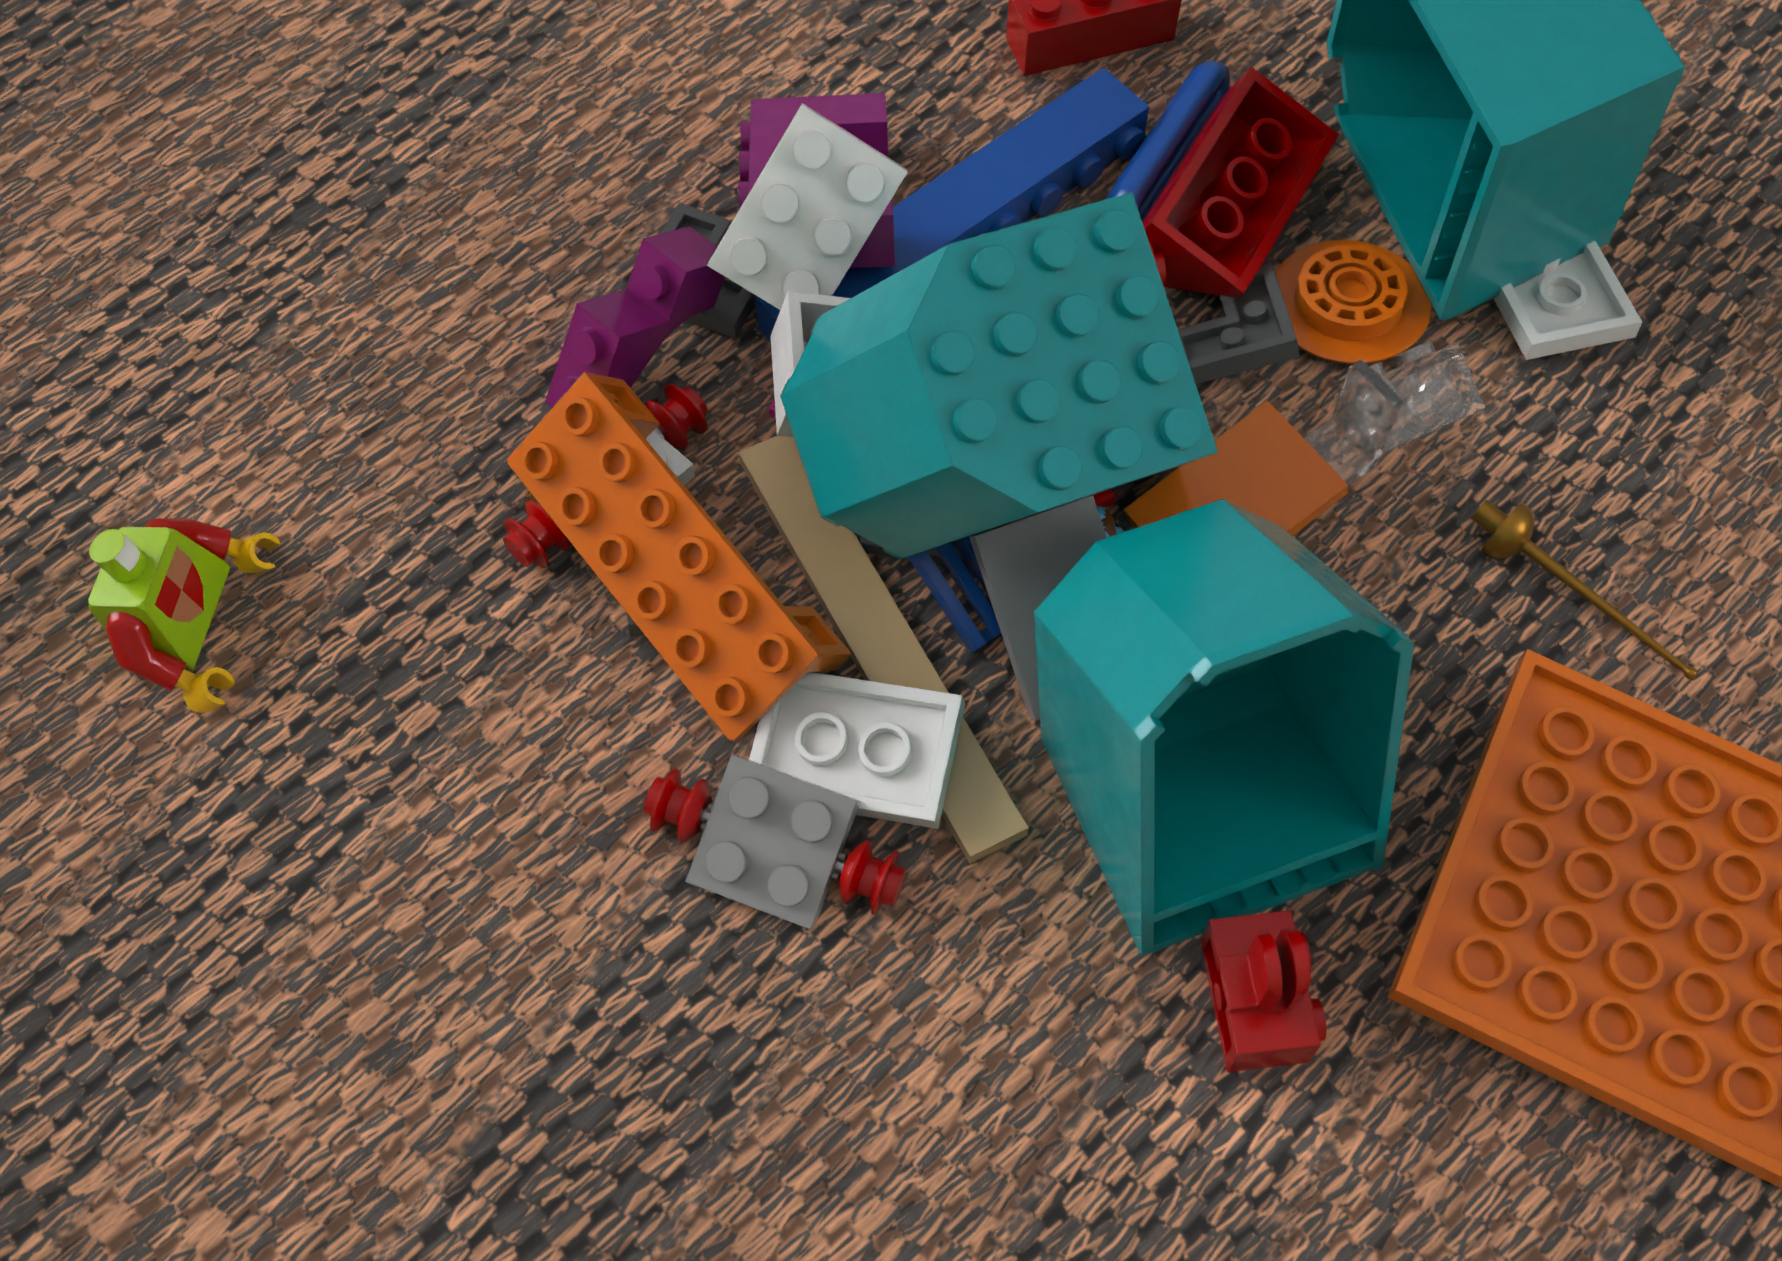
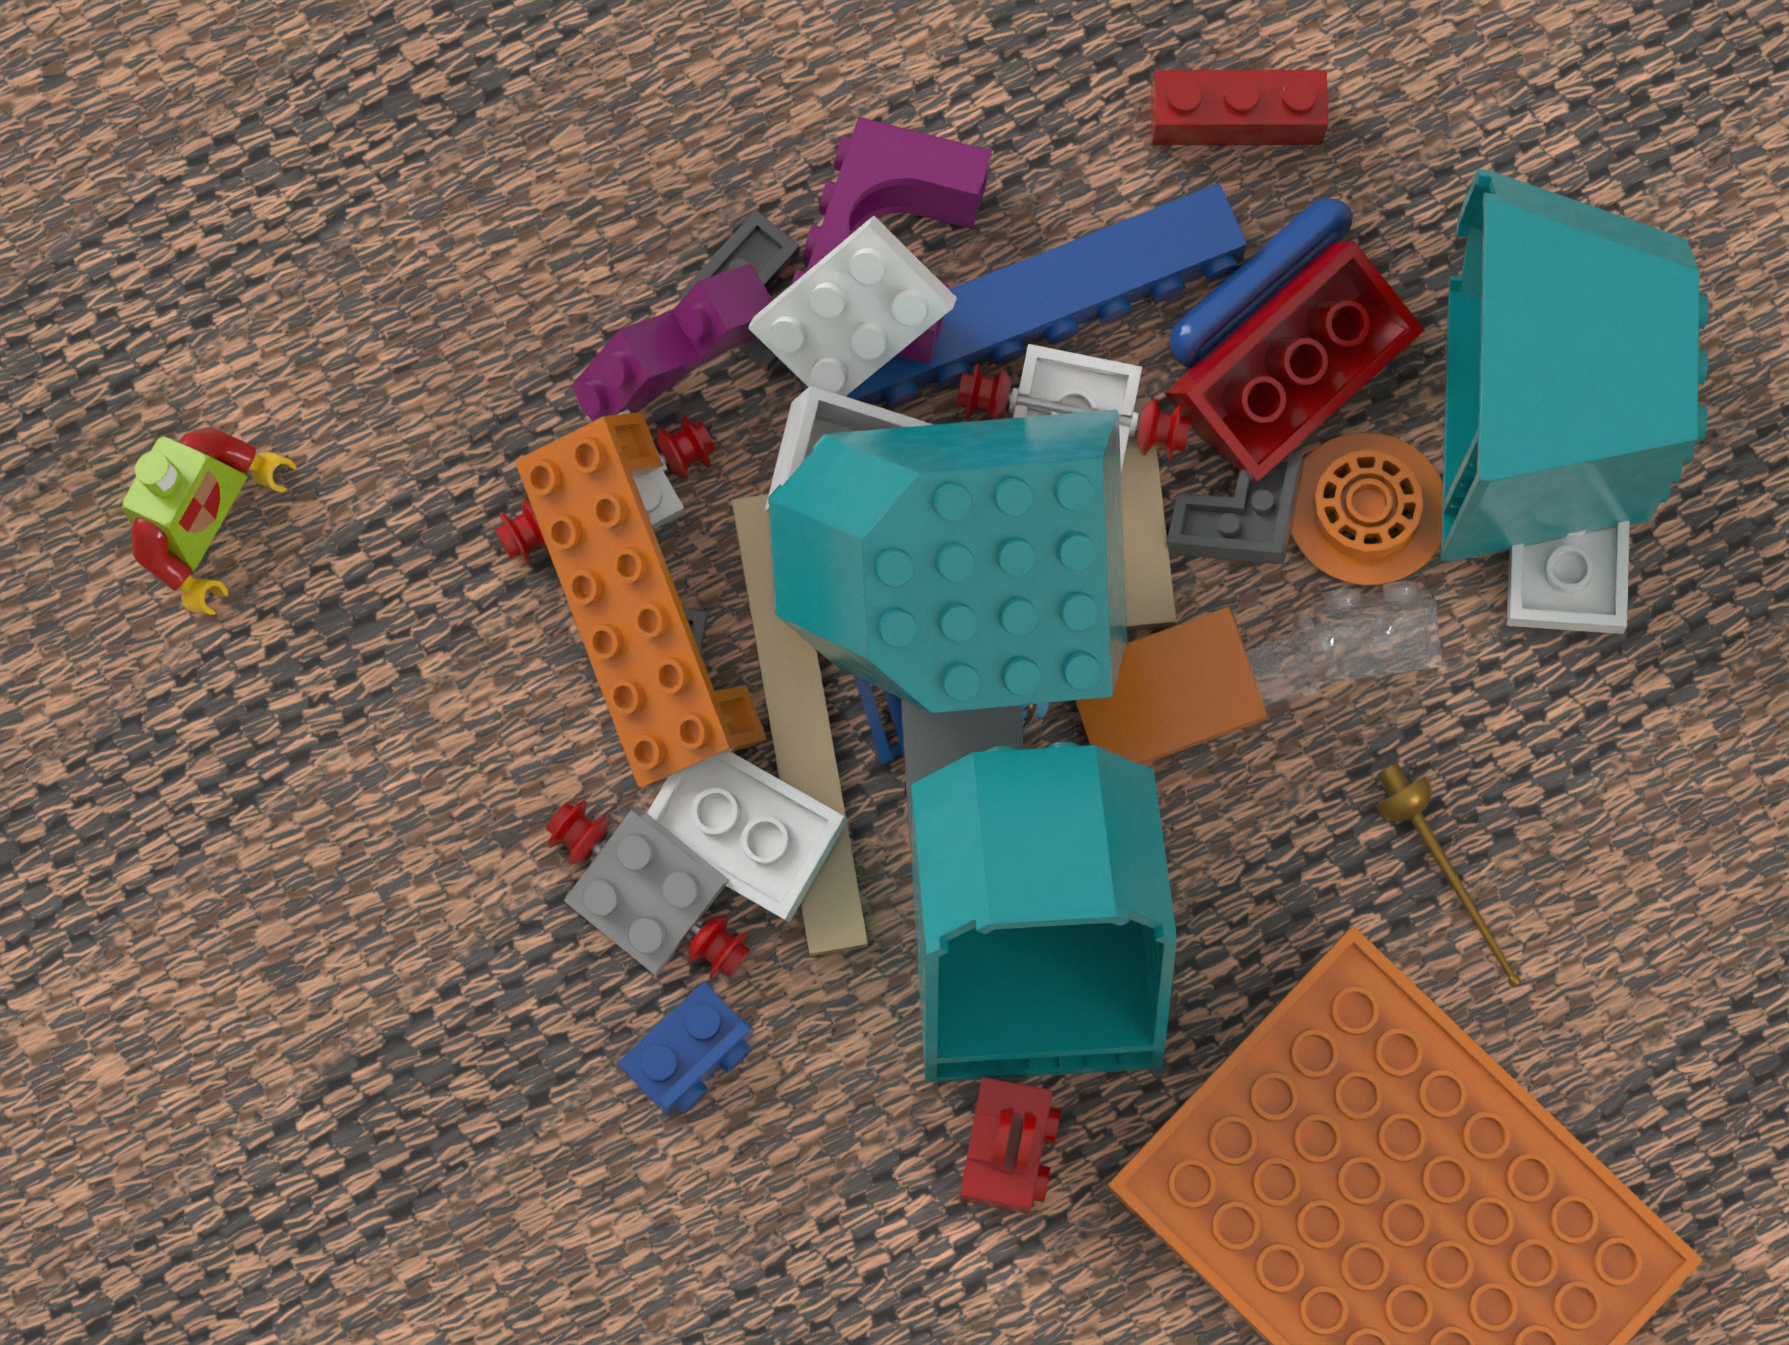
camera: 15 degrees right, 15 degrees up
(870, 1000) = (687, 1051): none -> blue bracket

